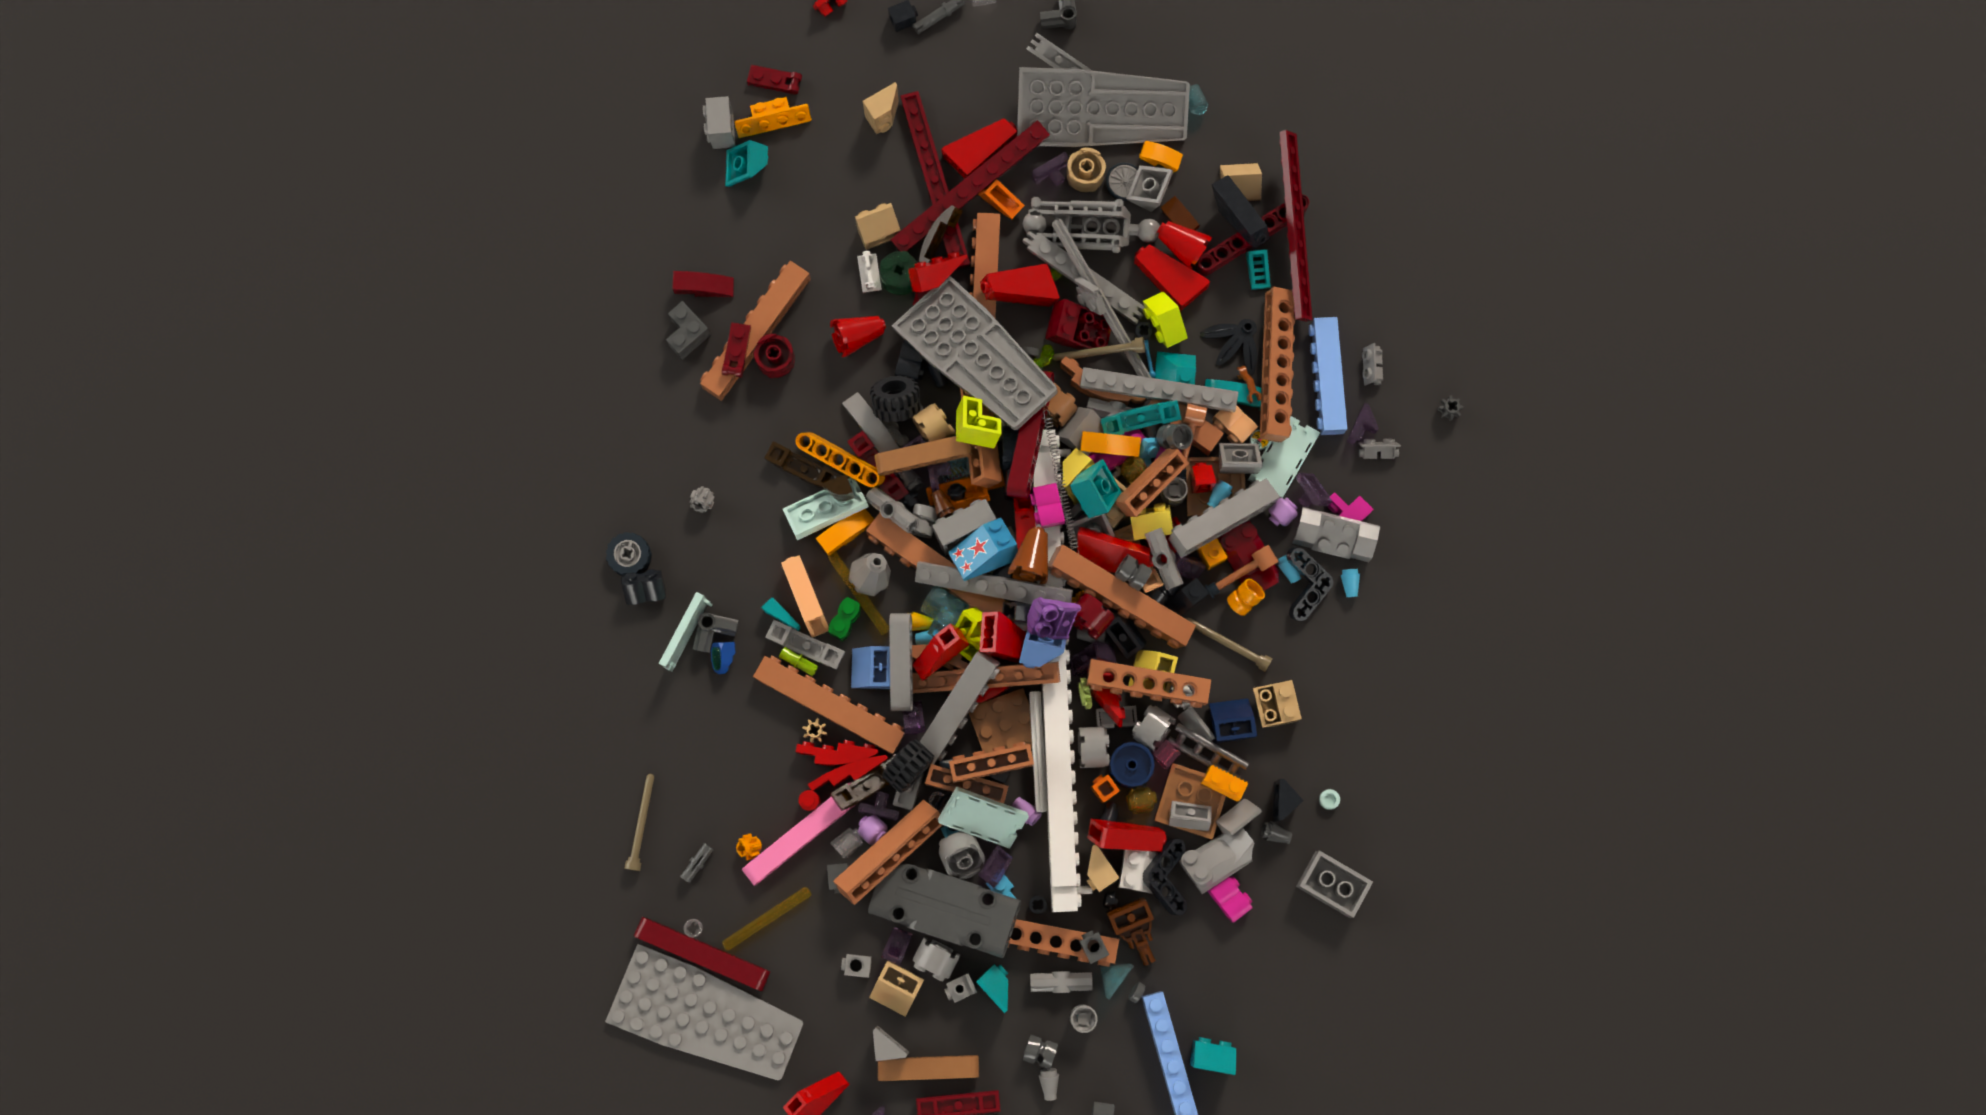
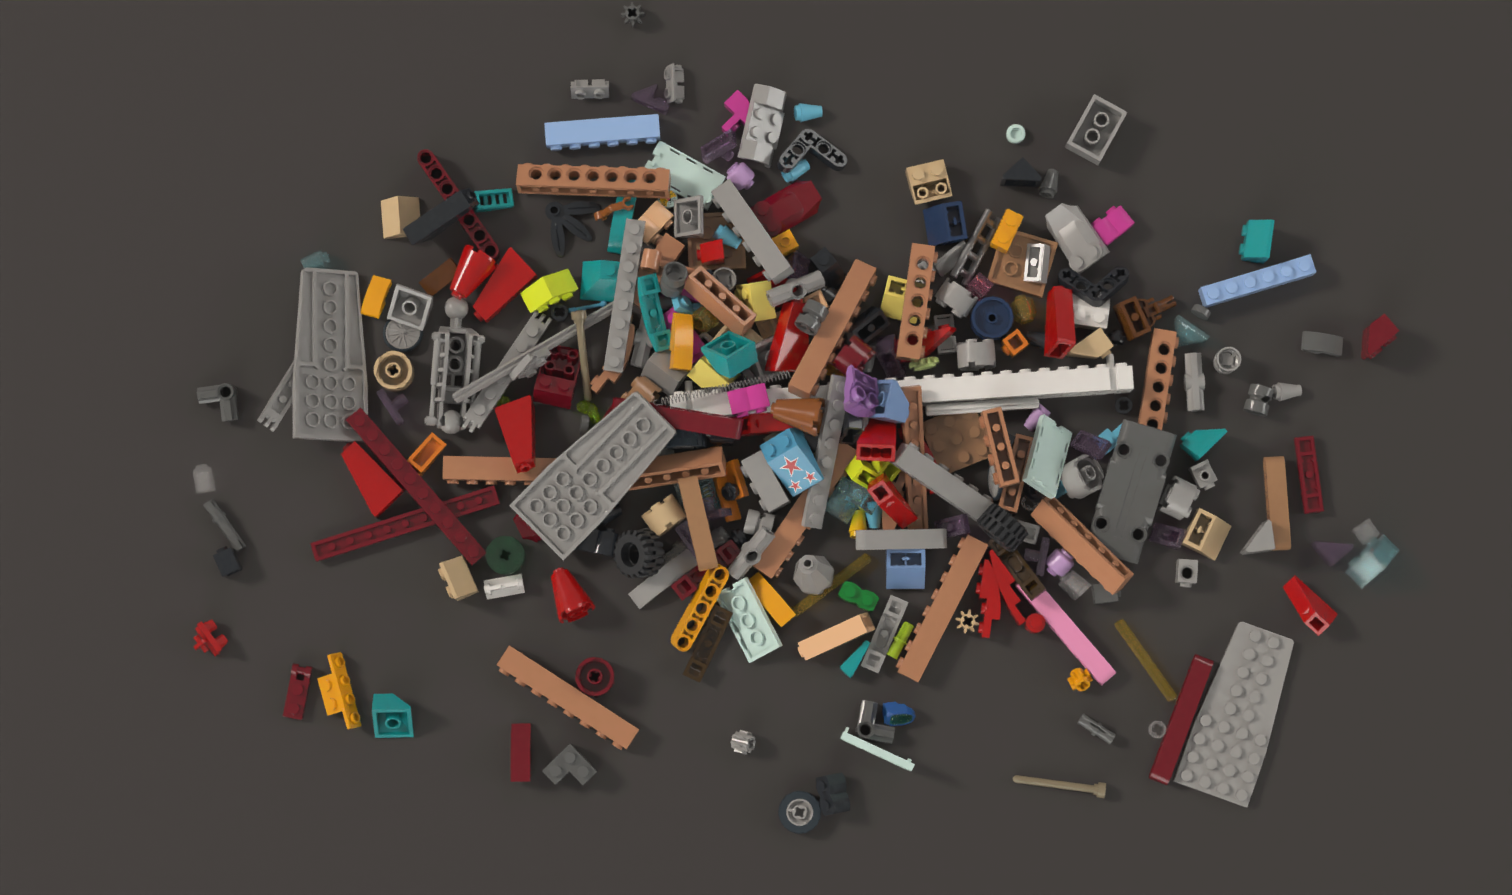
camera: 90 degrees left, 5 degrees up
(719, 122) = (350, 743): light grey brick -> none
(736, 349) = (591, 713): dark red plate -> none
(840, 488) = (732, 604): dark brown brick -> none
(881, 108) = (333, 578): tan slope -> none
(933, 274) = (511, 520): red slope -> none
(934, 236) = (495, 528): dark brown slope -> none
(942, 504) = (745, 504): reddish brown cone -> none
(973, 426) = (673, 473): neon yellow brick -> none
(1100, 953) = (1170, 346): dark grey brick -> none
(1238, 817) = (1036, 218): light grey slope -> none
(1246, 597) = (826, 211): light orange wheel -> none
(1261, 661) = (886, 197): dark tan piece -> none
(1263, 559) = (789, 195): nougat piece -> none
(1296, 227) = (452, 162): dark red plate -> none

